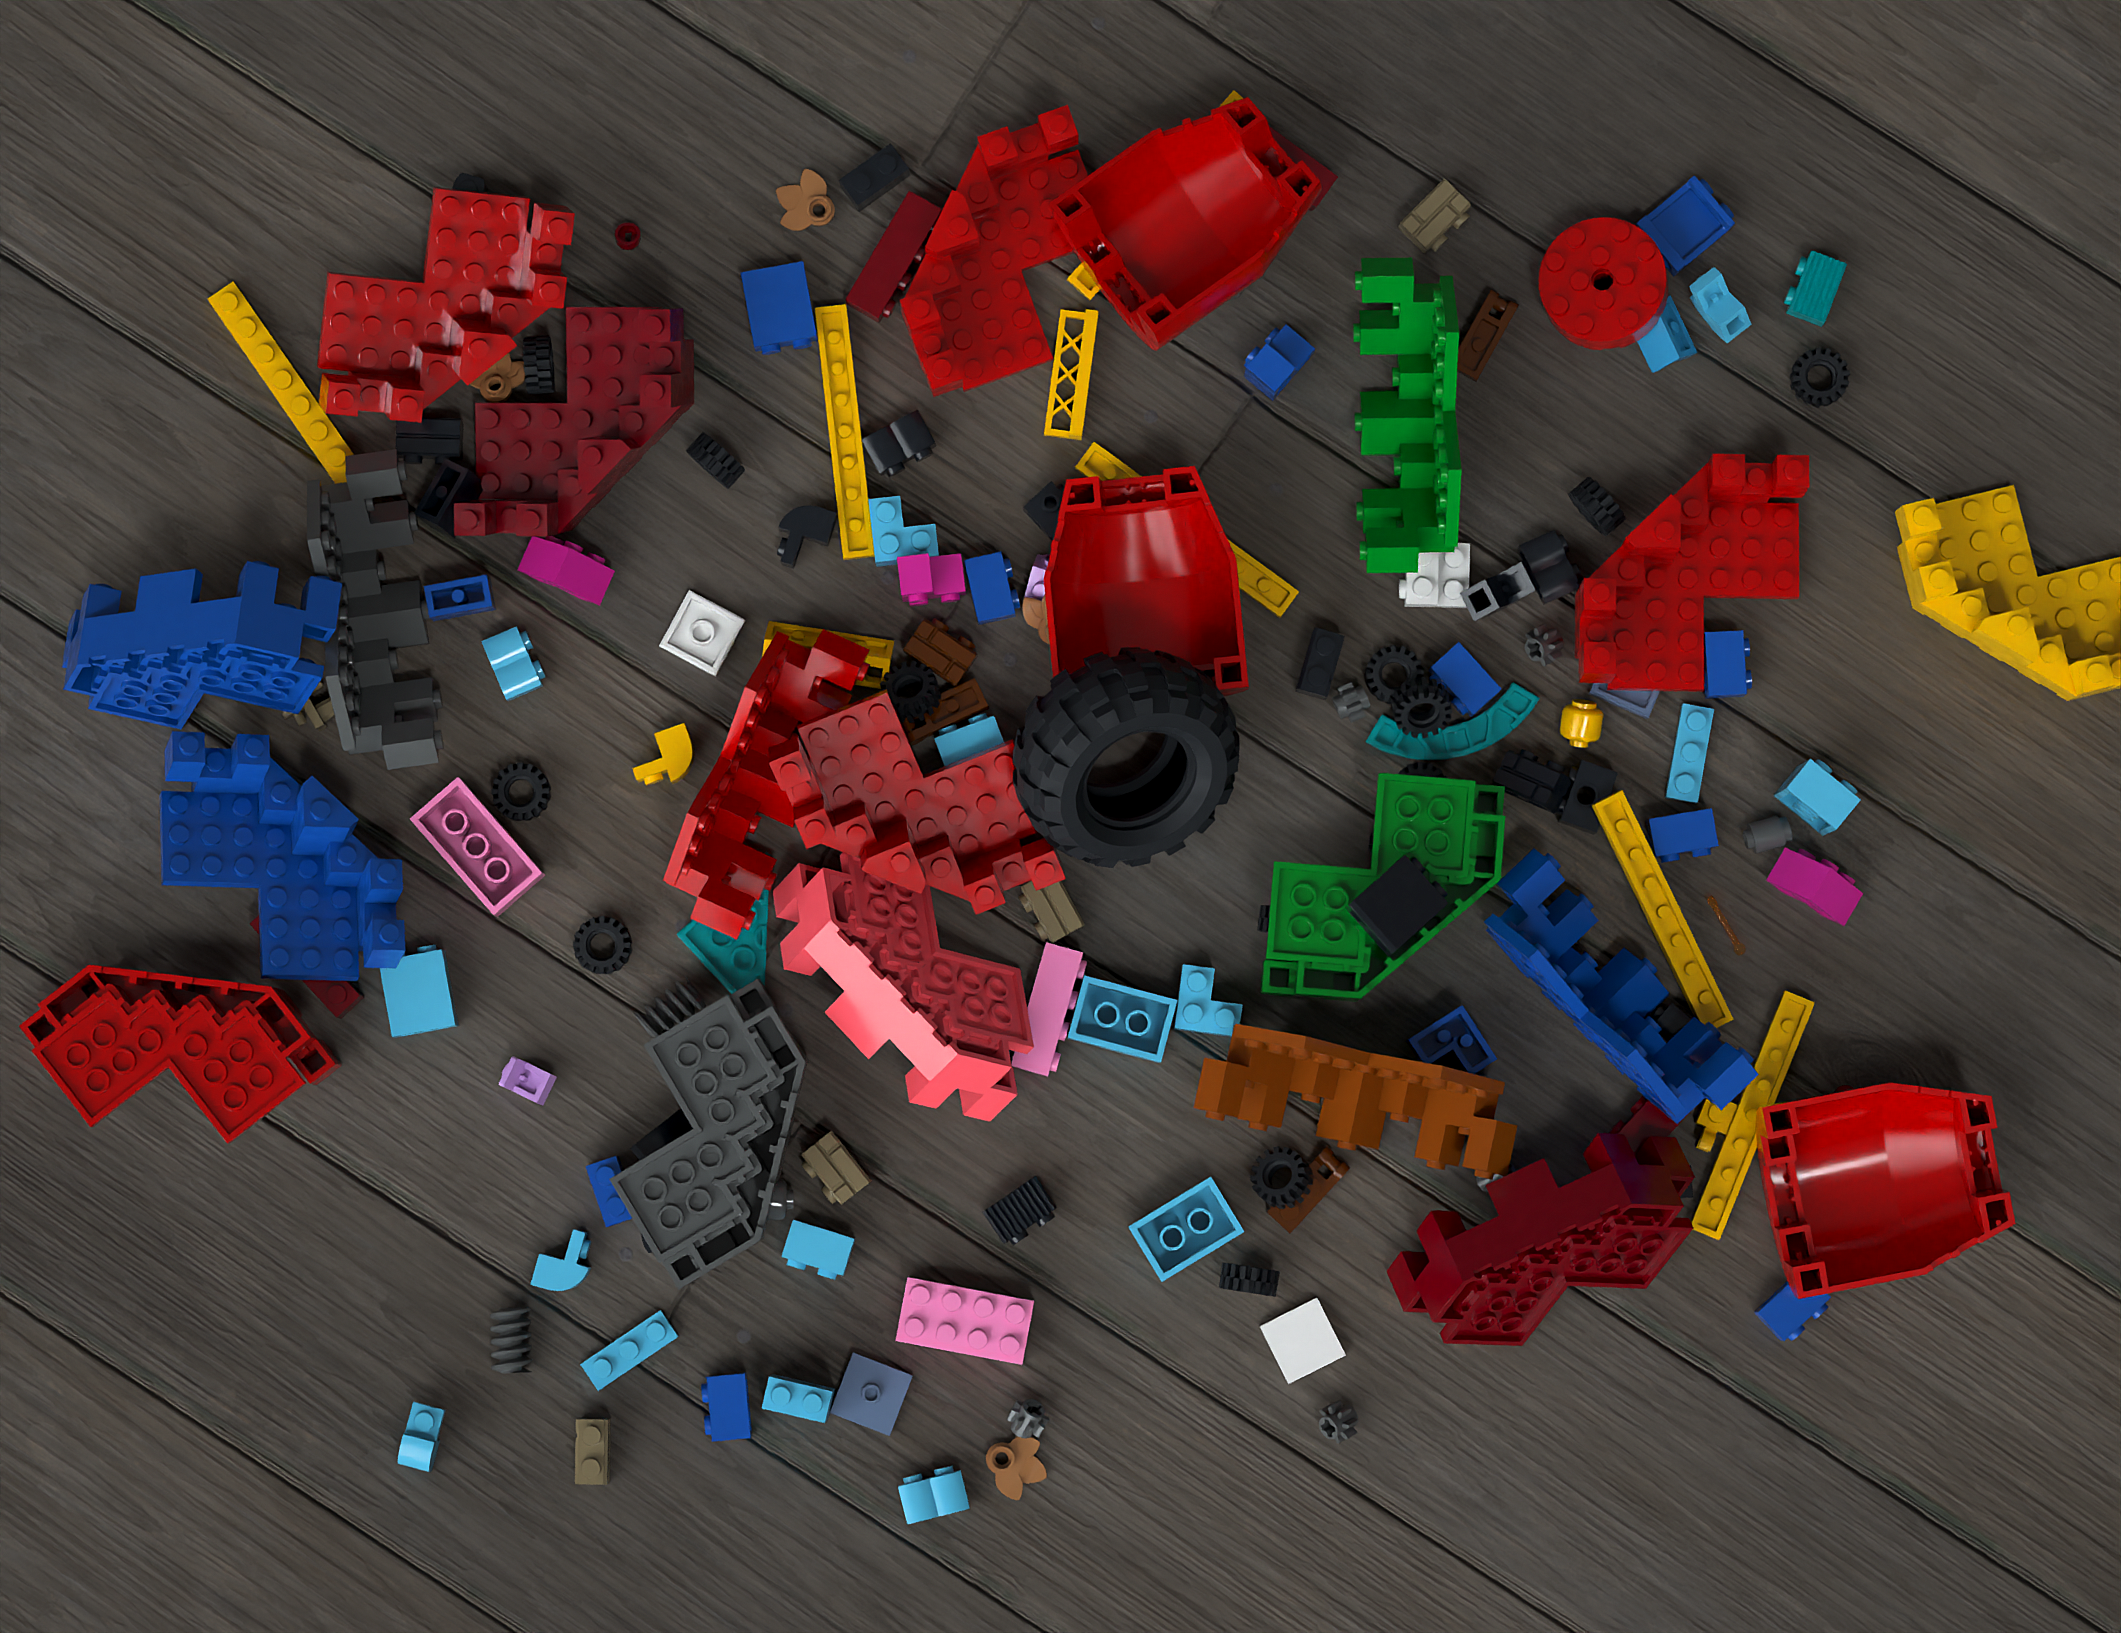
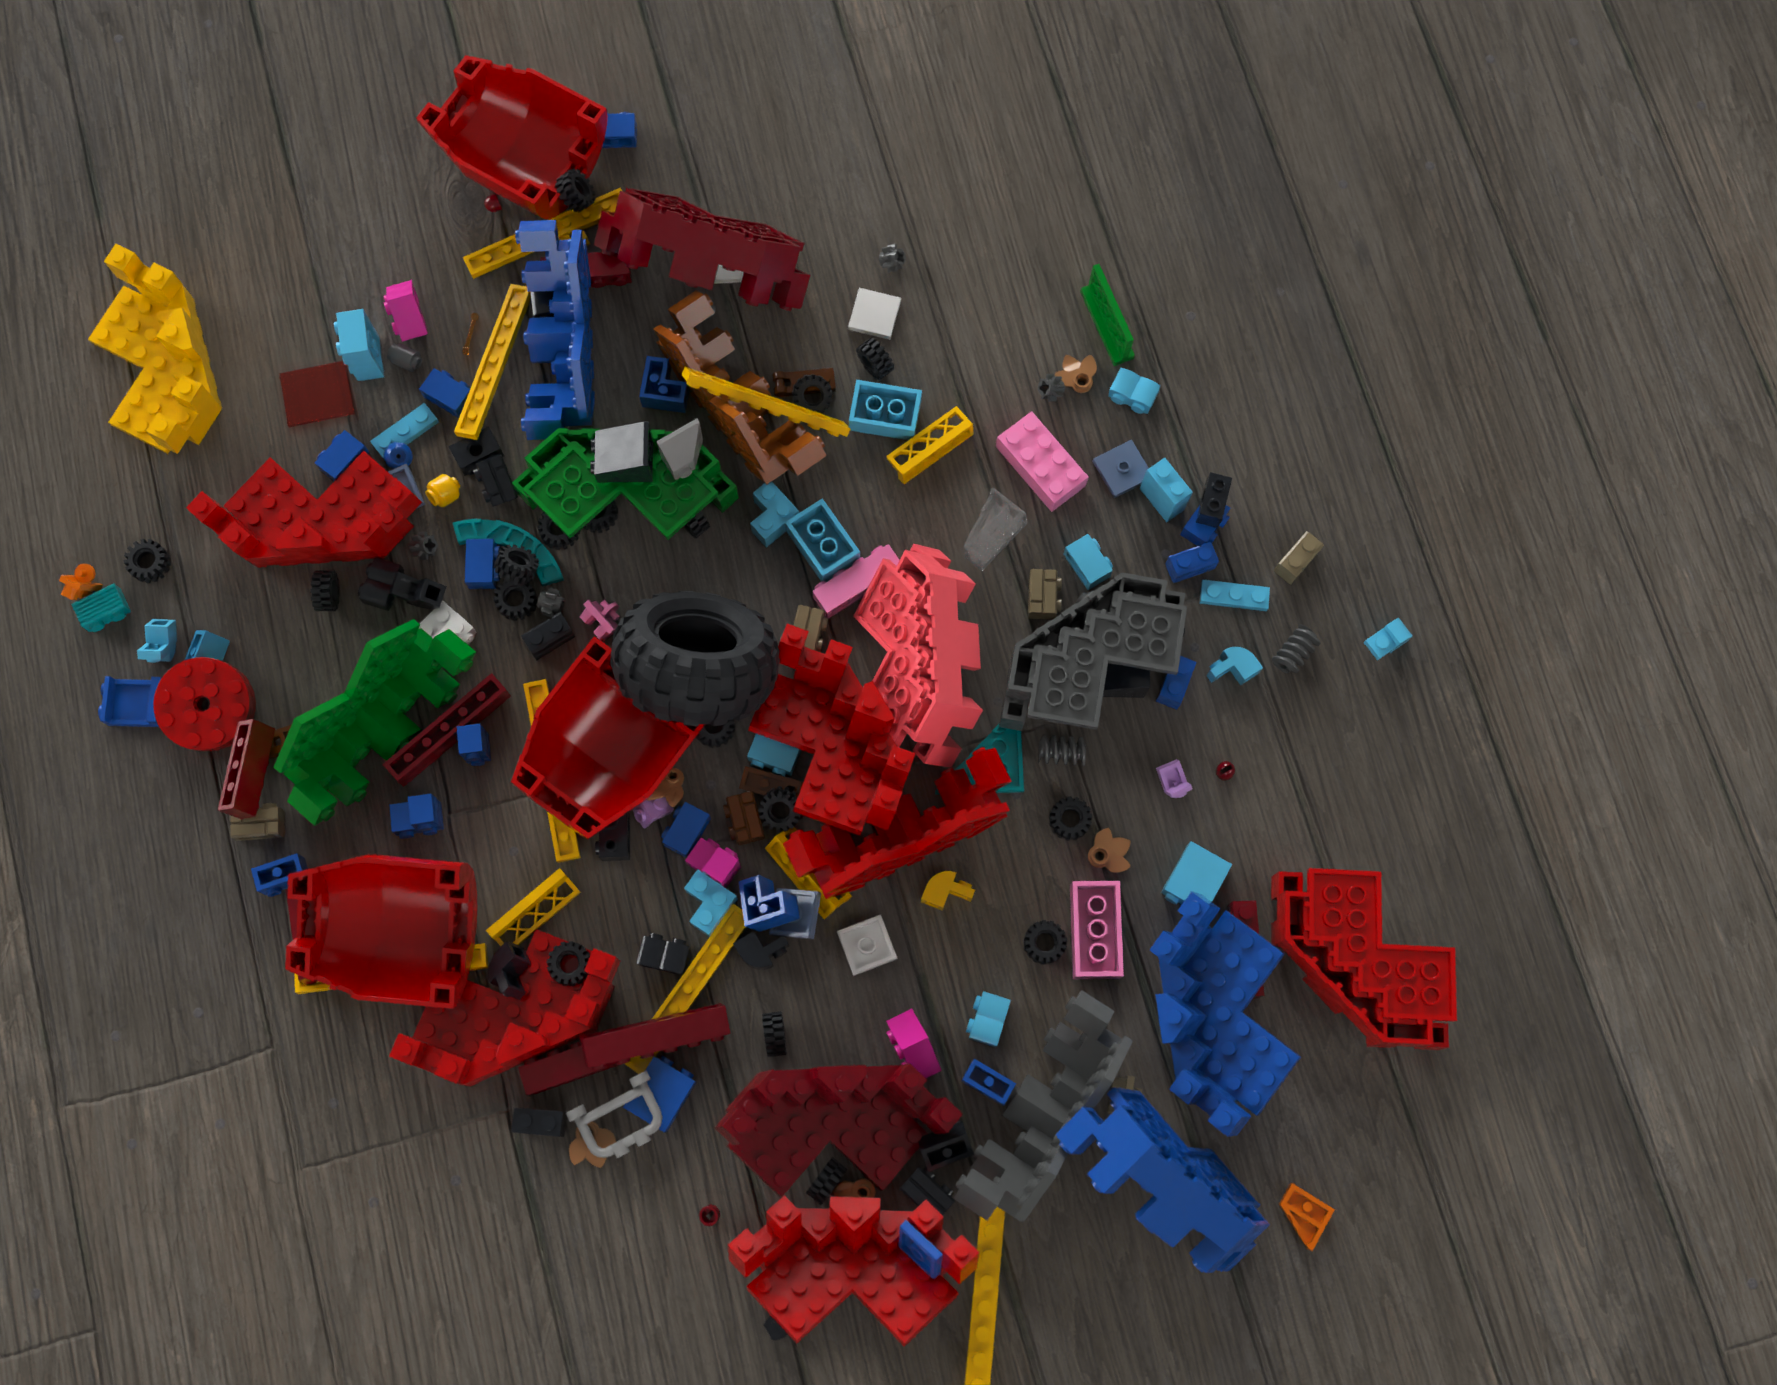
camera: 140 degrees left, 10 degrees down
(35, 742) = (1305, 1214): none -> orange wing
(388, 372) = (920, 1249): none -> blue tile
(488, 1144) = (1227, 775): none -> dark red hinge
(530, 950) = (1112, 850): none -> medium nougat plate
(704, 1344) = (1192, 562): none -> blue brick
(734, 1427) = (1214, 500): none -> black brick
(771, 222) = (640, 1137): none -> light grey bar
(802, 599) = (808, 908): none -> sand blue plate
(831, 355) = (655, 1035): none -> dark red brick
(838, 574) = (764, 907): none -> blue brick
(949, 1192) = (994, 529): none -> clear wedge
(983, 370) = (558, 954): none -> black tyre
(1020, 1210) = (963, 492): black brick -> none
(1033, 1557) = (1108, 317): none -> green fence
(1044, 292) = (506, 968): none -> black brick
(1092, 1230) = (932, 452): none -> yellow fence
(1281, 736) = (595, 611): none -> bright pink hips
(1286, 482) = (473, 744): none -> blue brick
(1310, 1109) = (759, 400): none -> yellow plate
(1330, 475) = (443, 731): none -> dark red brick
(1336, 961) = (681, 449): none -> light grey slope
(1358, 187) = (273, 876): none -> blue brick
(1490, 255) = (246, 769): none -> dark red brick
(1676, 719) = (398, 448): none -> blue plate
(1755, 1183) = (575, 190): none -> black tyre
(1826, 712) = (316, 393): none -> clear red piece
(1859, 292) = (80, 584): none -> orange hips

